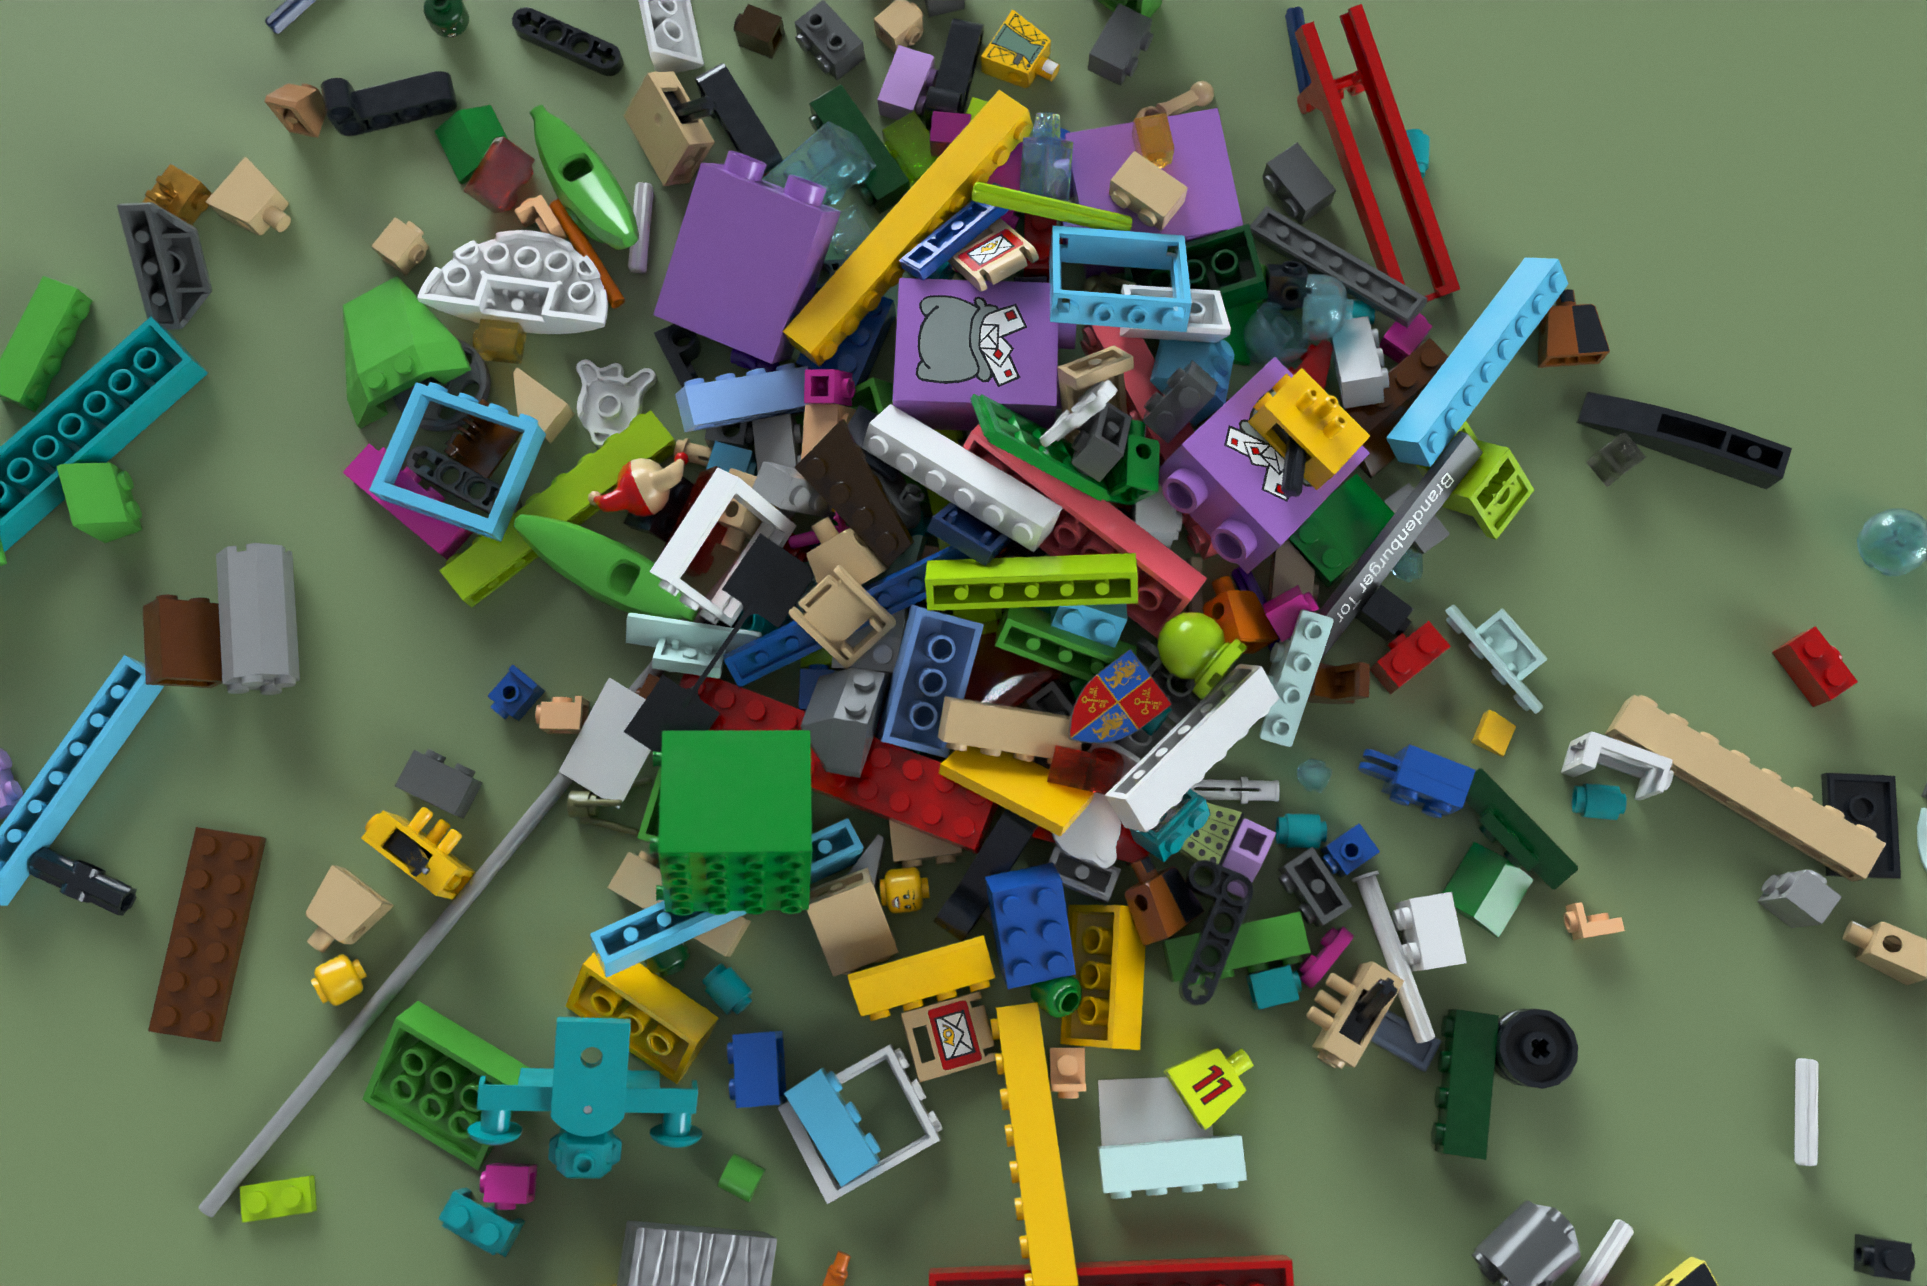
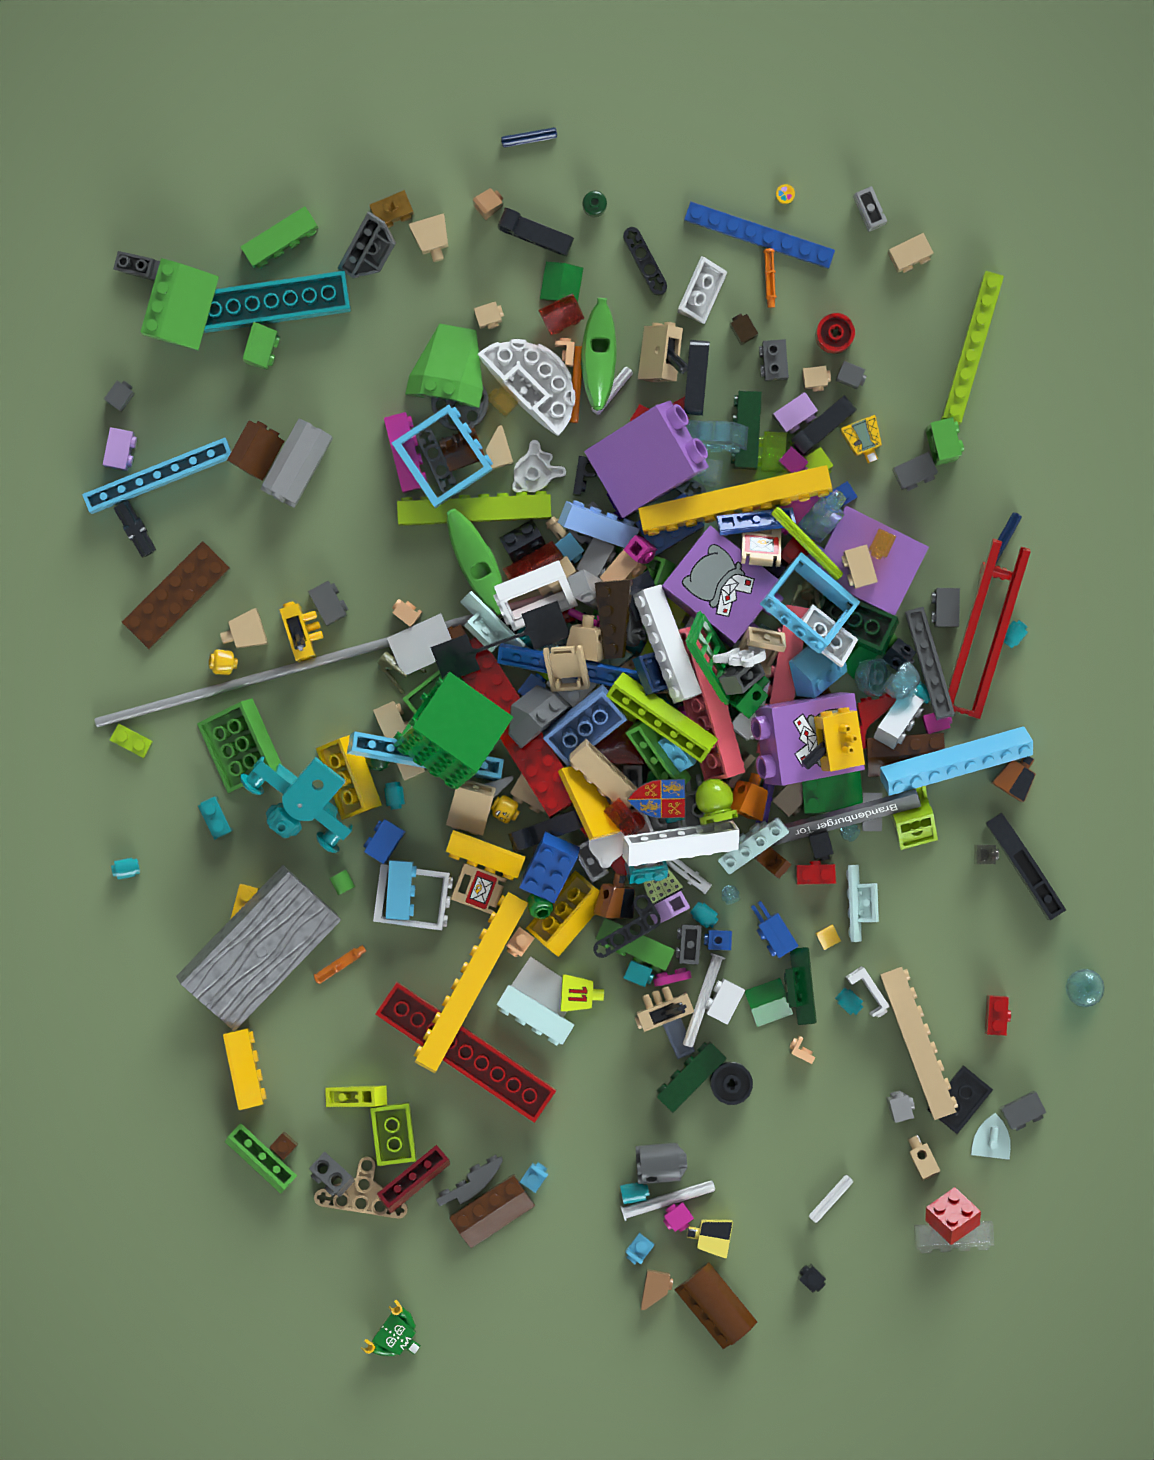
camera: 30 degrees right, 10 degrees up
(508, 1184) = (238, 810): dark pink brick -> none
(526, 694) = (398, 588): blue brick -> none
(642, 487) = (519, 532): piece -> none
(1180, 401) = (792, 683): dark grey brick -> none
(1200, 94) = (937, 523): tan piece -> none
(1285, 608) = (772, 810): dark pink brick -> none

